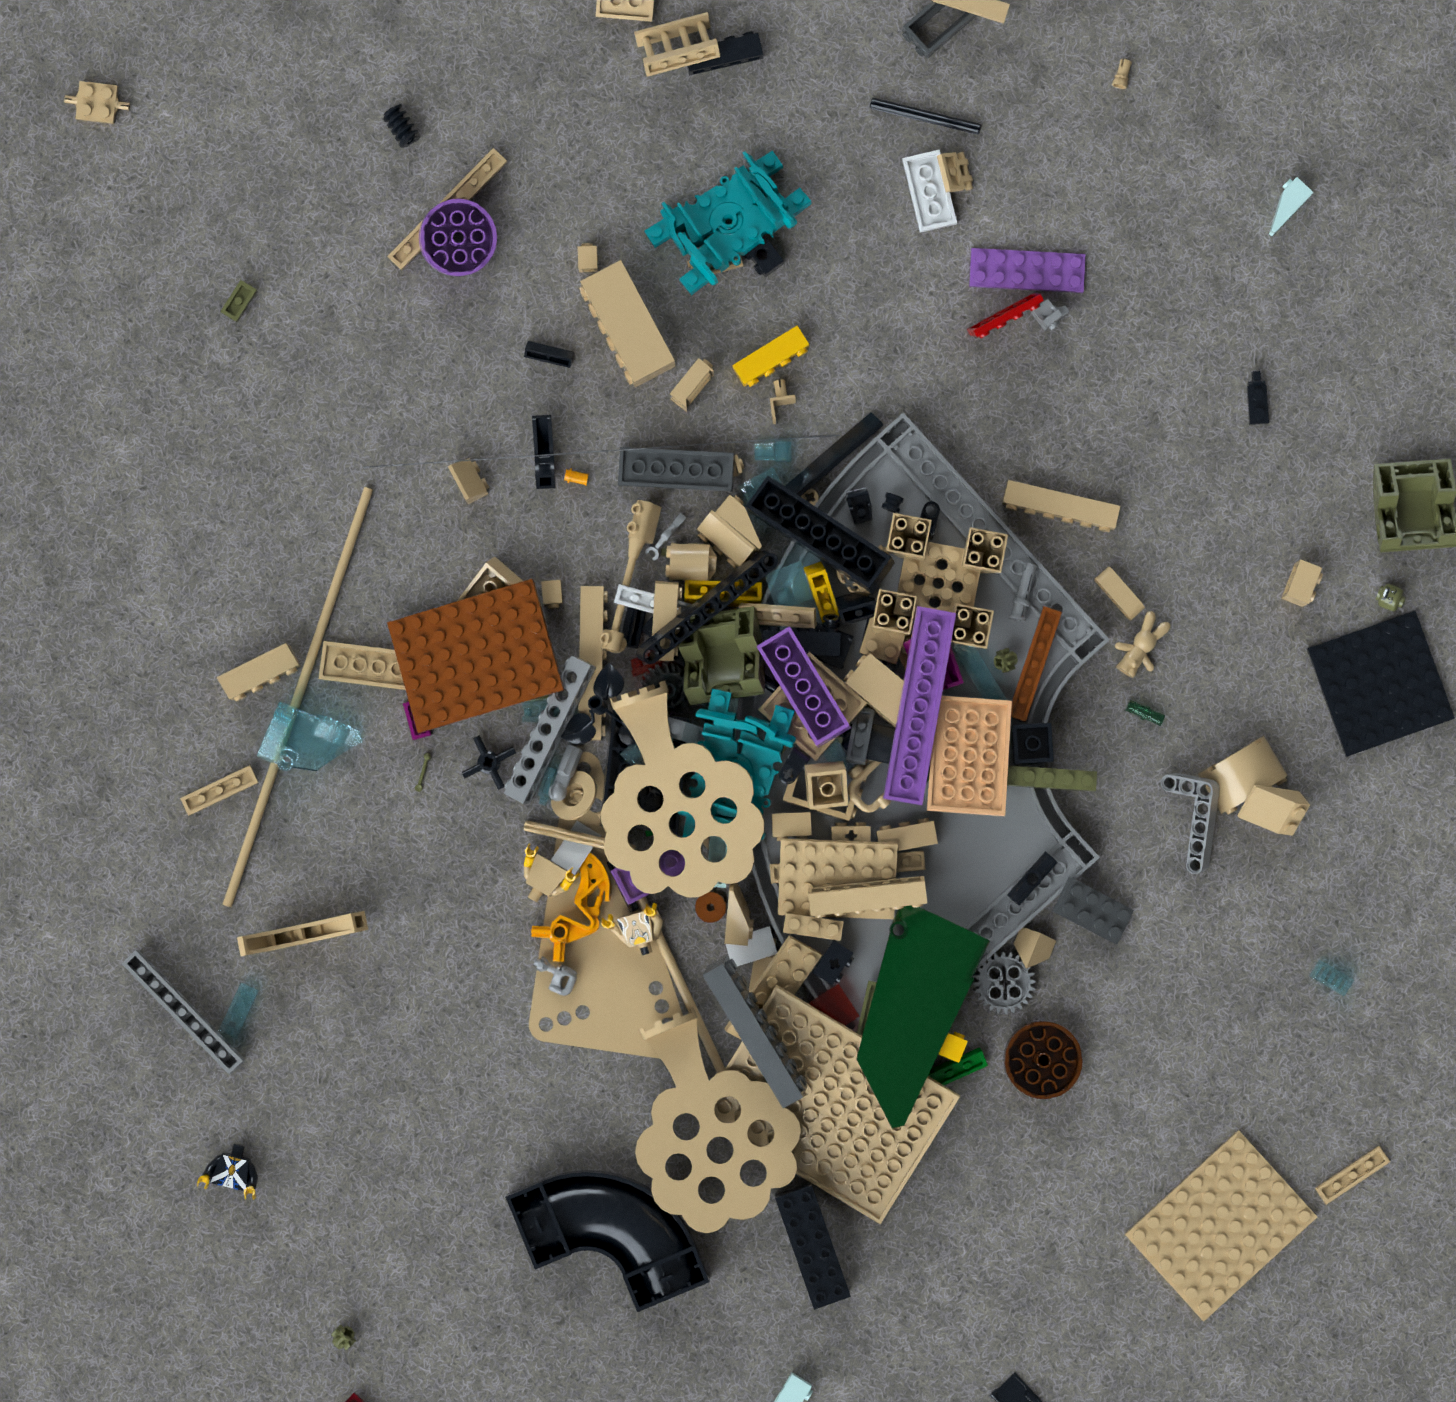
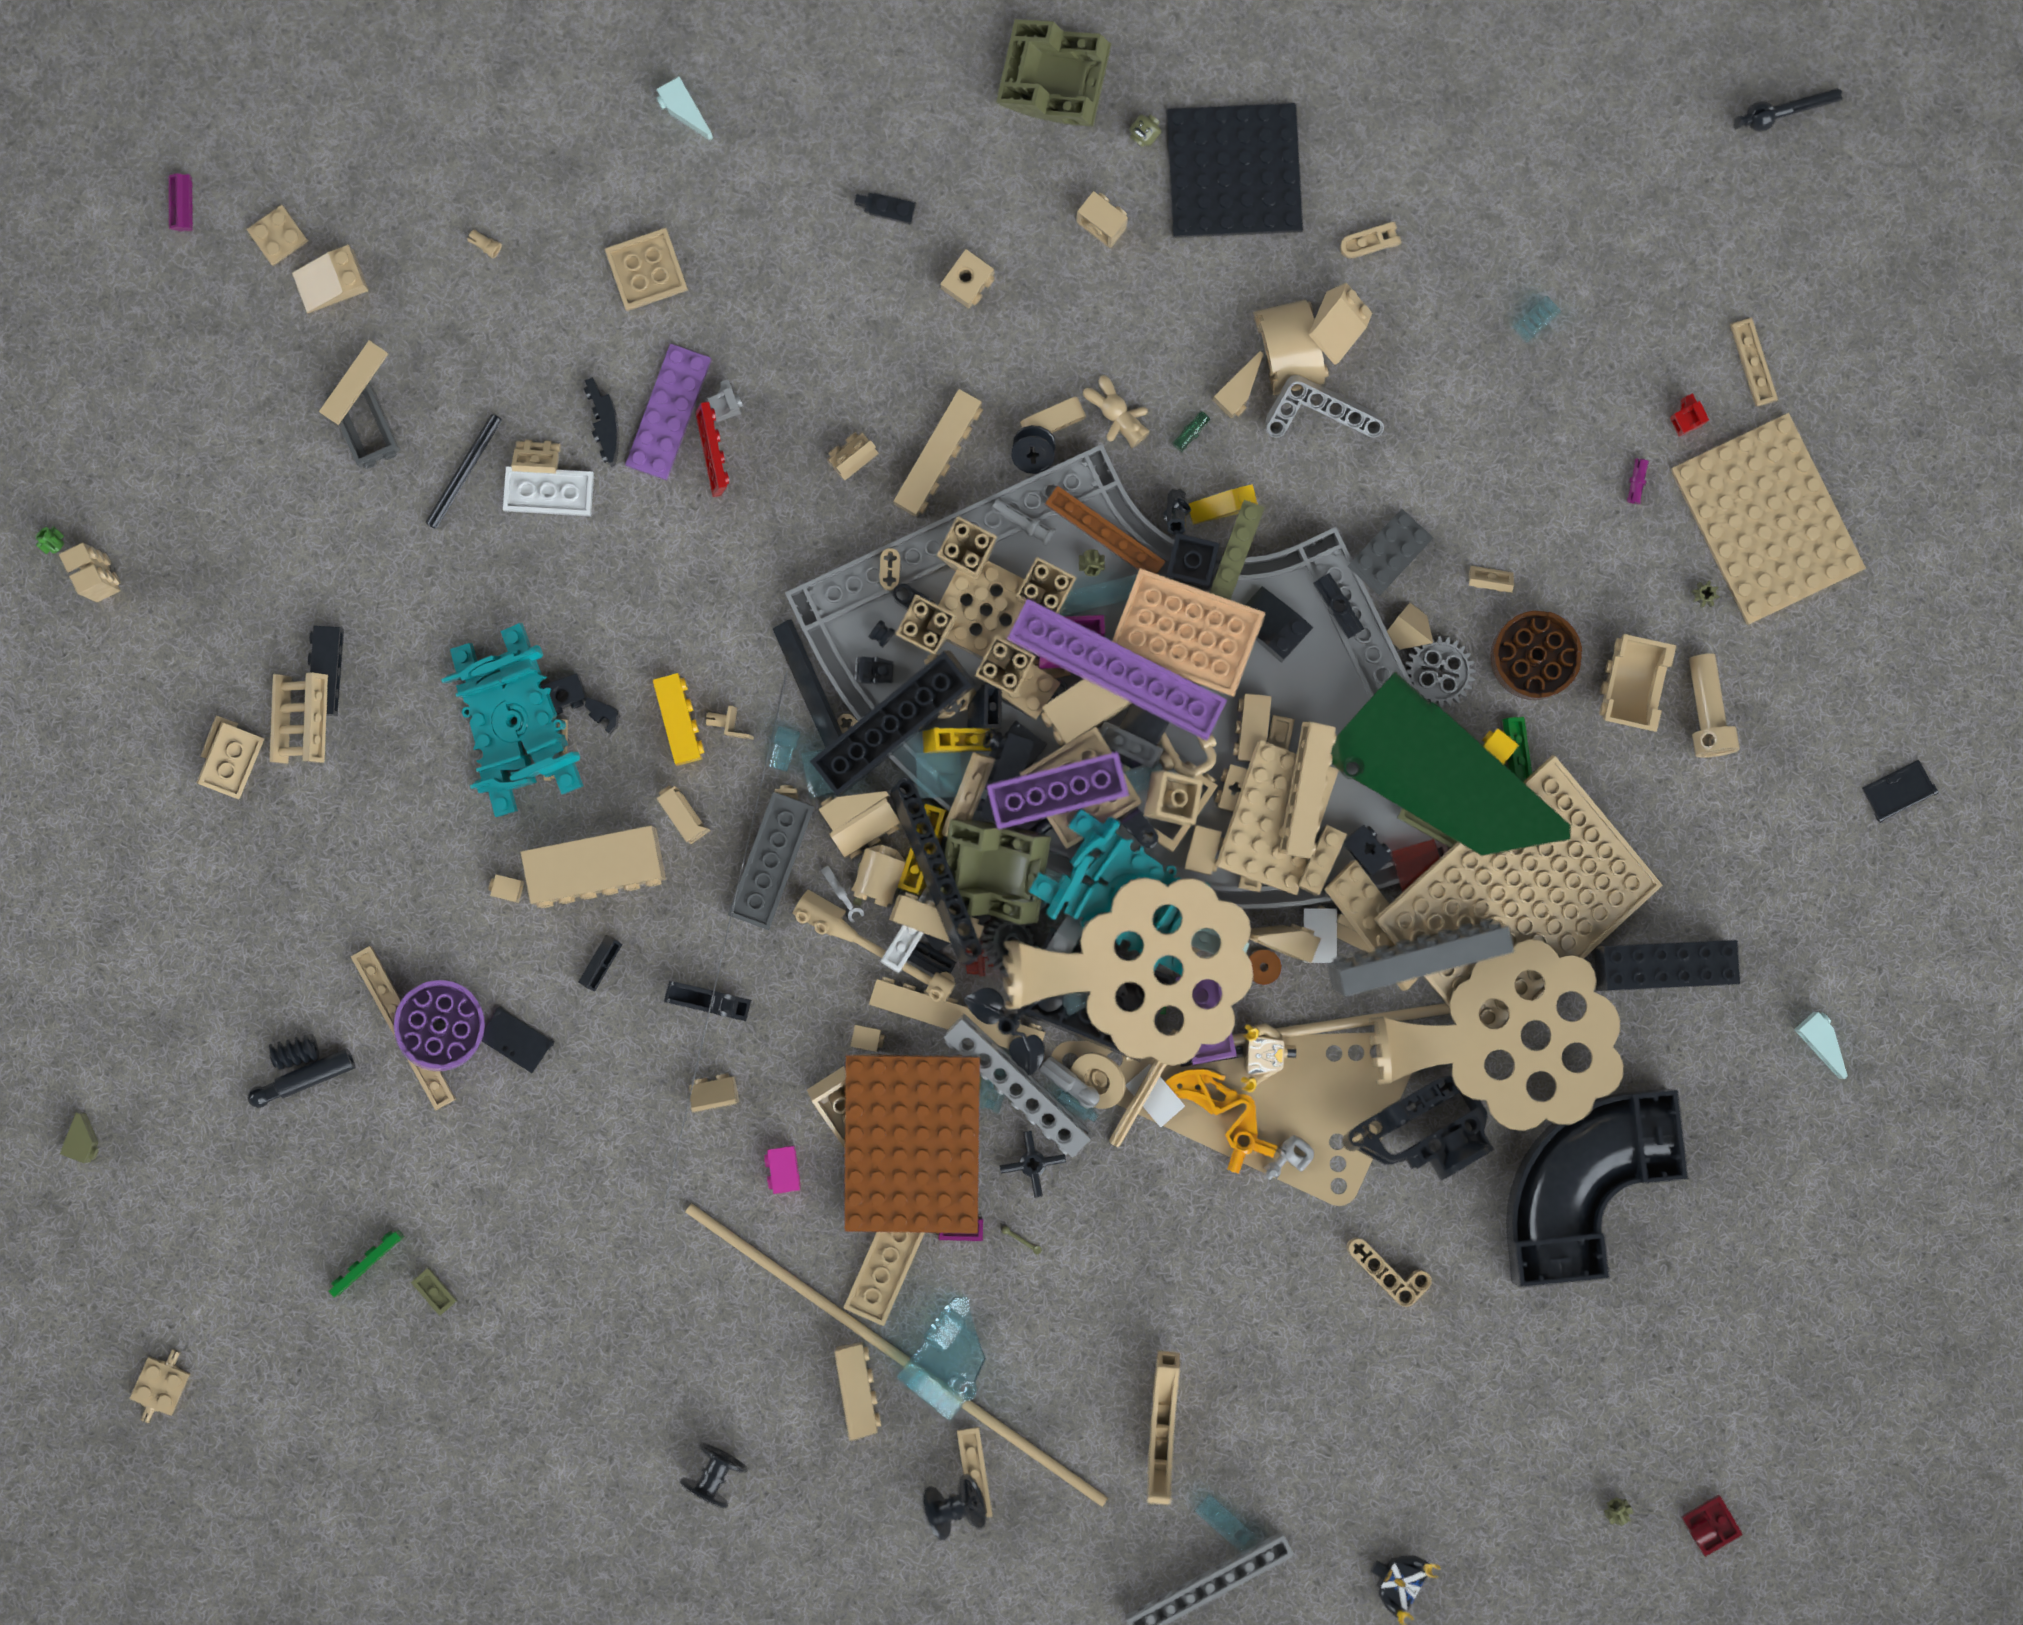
camera: 75 degrees left, 0 degrees up
(155, 574) = (713, 1475): none -> black piece
(179, 771) = (942, 1511): none -> black piece
(239, 233) = (359, 1268): none -> green plate
(381, 140) = (302, 1078): none -> black piece
(422, 557) = (782, 1169): none -> dark pink brick
(464, 310) = (523, 1042): none -> black door
(487, 1082) = (1384, 1269): none -> tan beam
(545, 875) = (1176, 1138): tan torso -> none
(576, 477) = (745, 973): light orange pin -> none
(608, 1110) = (1454, 1143): none -> black piece
(757, 289) = (599, 711): none -> black hand
(947, 489) = (884, 569): none -> tan beam
(996, 224) = (607, 428): none -> black slope
(999, 833) = (1281, 627): none -> black slope
(1019, 1231) = (1714, 735): none -> tan piece
(1037, 434) = (852, 455): none -> tan brick
(1044, 1150) = (1635, 682): none -> tan cylinder
(1071, 719) = (1176, 511): none -> black piece
(1080, 589) = (1022, 452): none -> black piece
(1090, 756) = (1221, 504): none -> yellow slope
(1096, 1003) = (1491, 579): none -> tan plate
(1135, 1186) = (1701, 597): none -> olive gear
(1142, 215) = (646, 269): none -> tan plate
(1190, 741) = (1236, 392): none -> tan slope
(1206, 491) = (968, 292): none -> tan brick
(1218, 1104) = (1637, 481): none -> magenta pin
(1287, 1133) = (1690, 416): none -> red brick
(1355, 816) = (1369, 241): none -> tan plate

